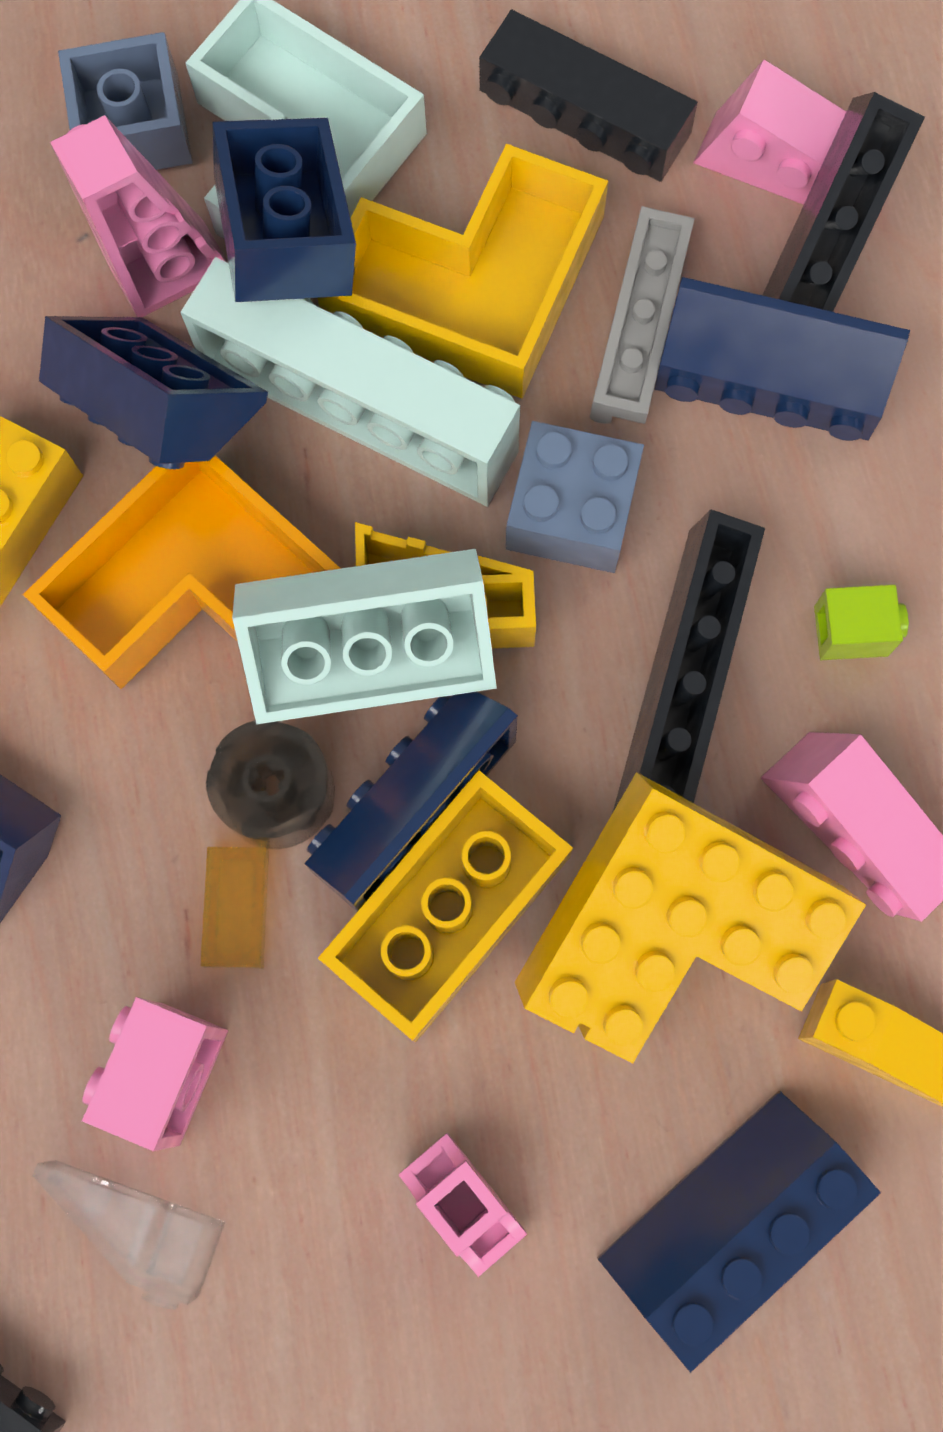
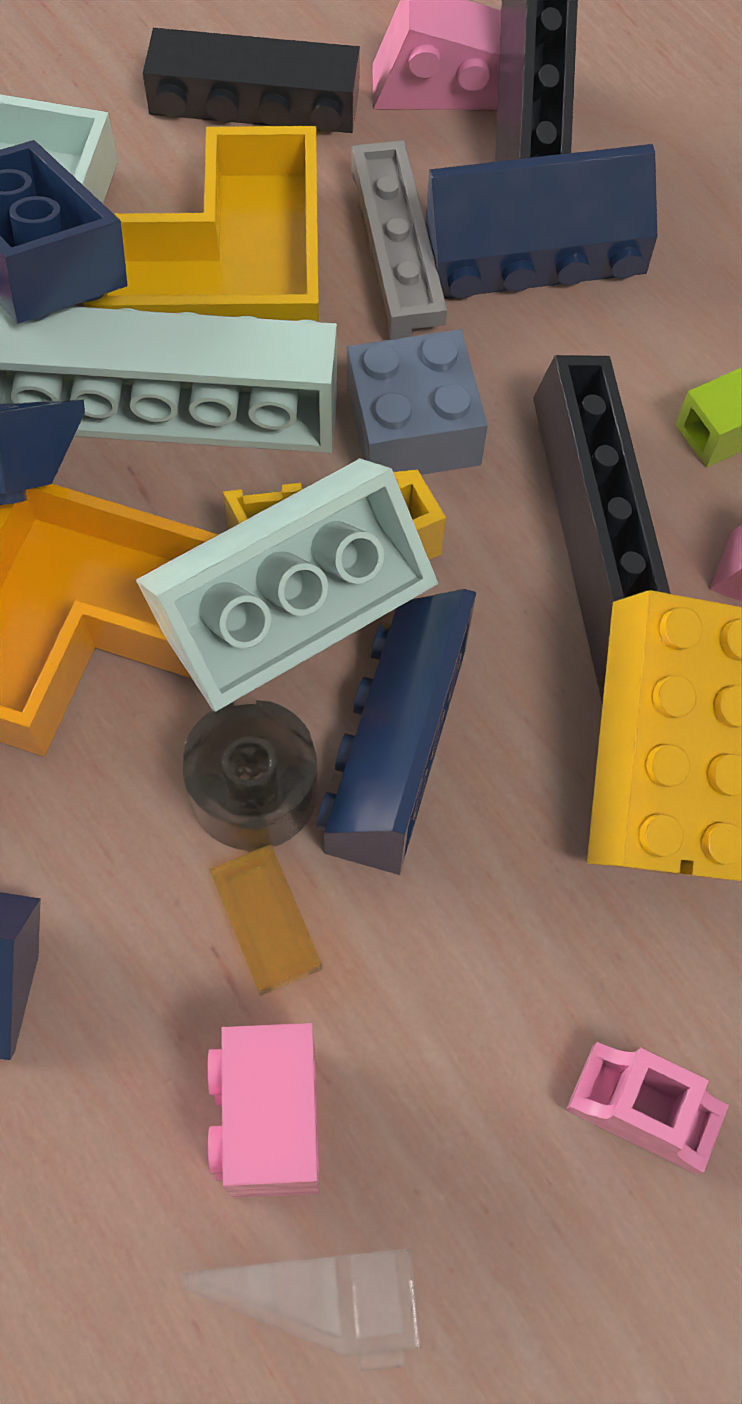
camera: 30 degrees left, 10 degrees down
(446, 906) = (486, 819): yellow brick -> none

